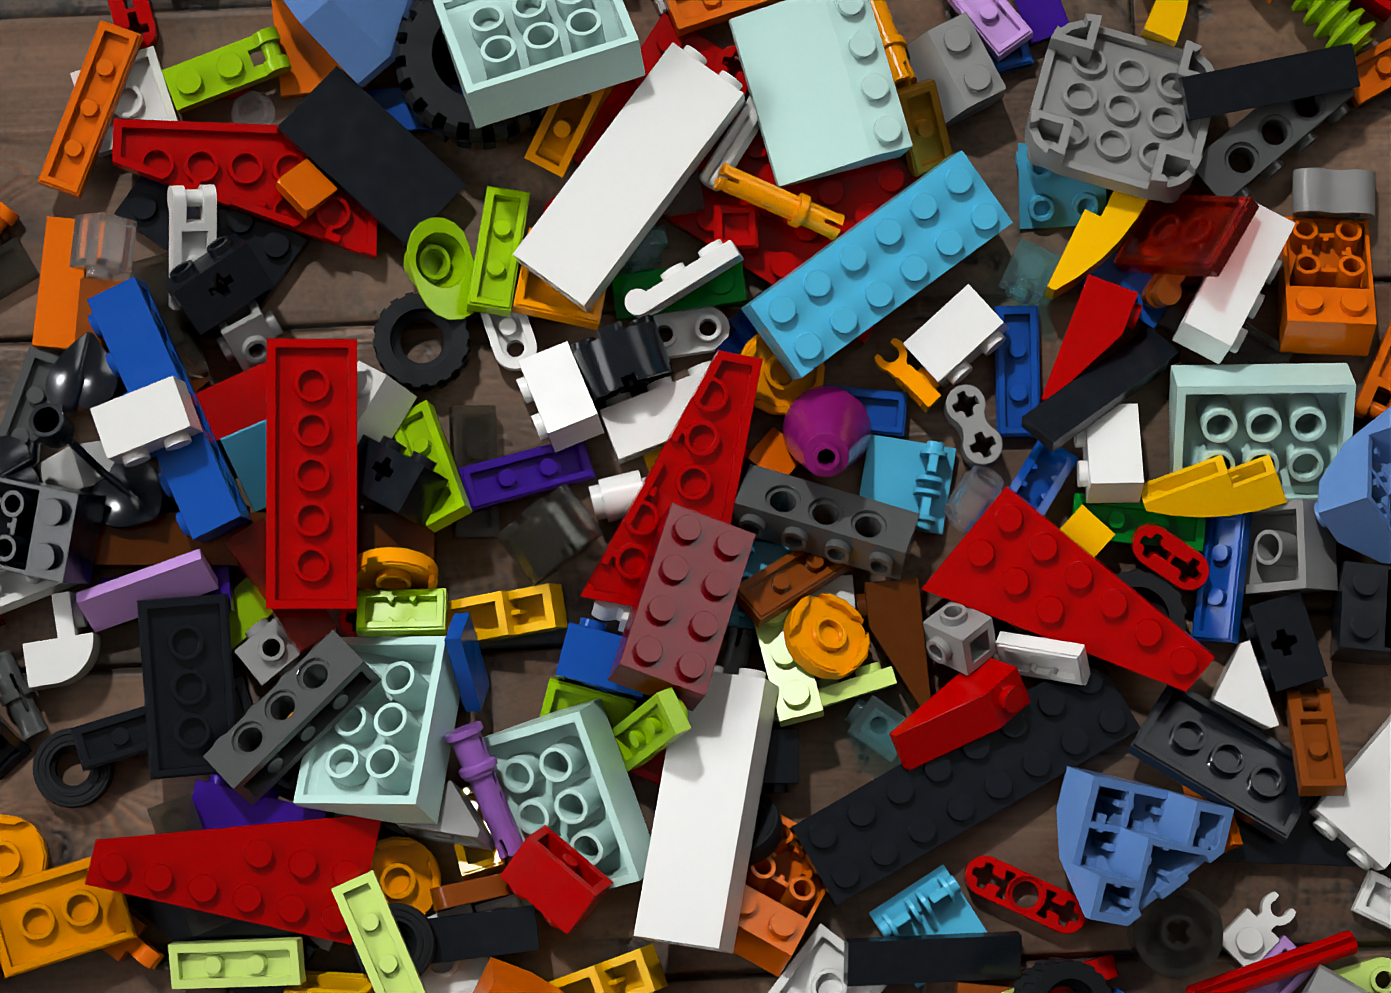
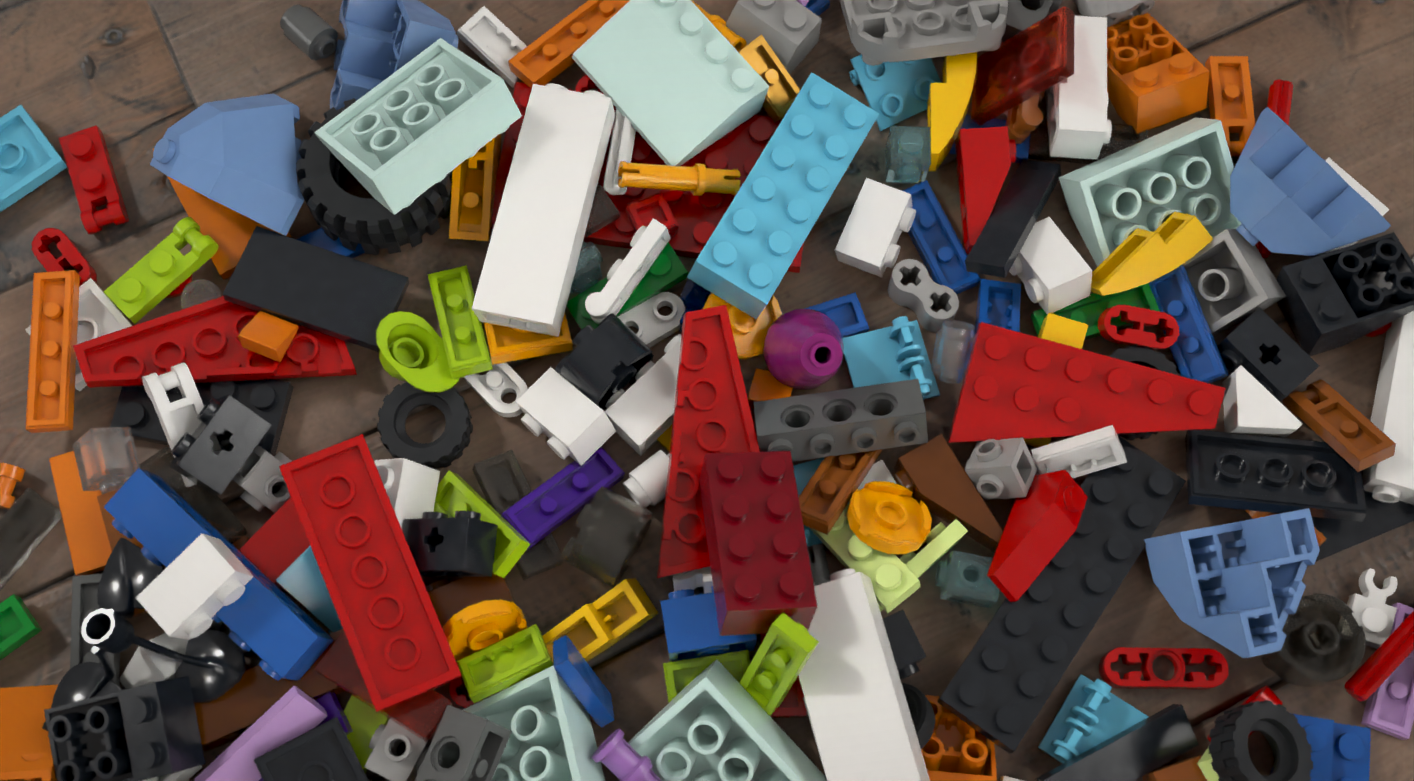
camera: 25 degrees left, 10 degrees down
(918, 384) = (851, 279): light orange plate -> none

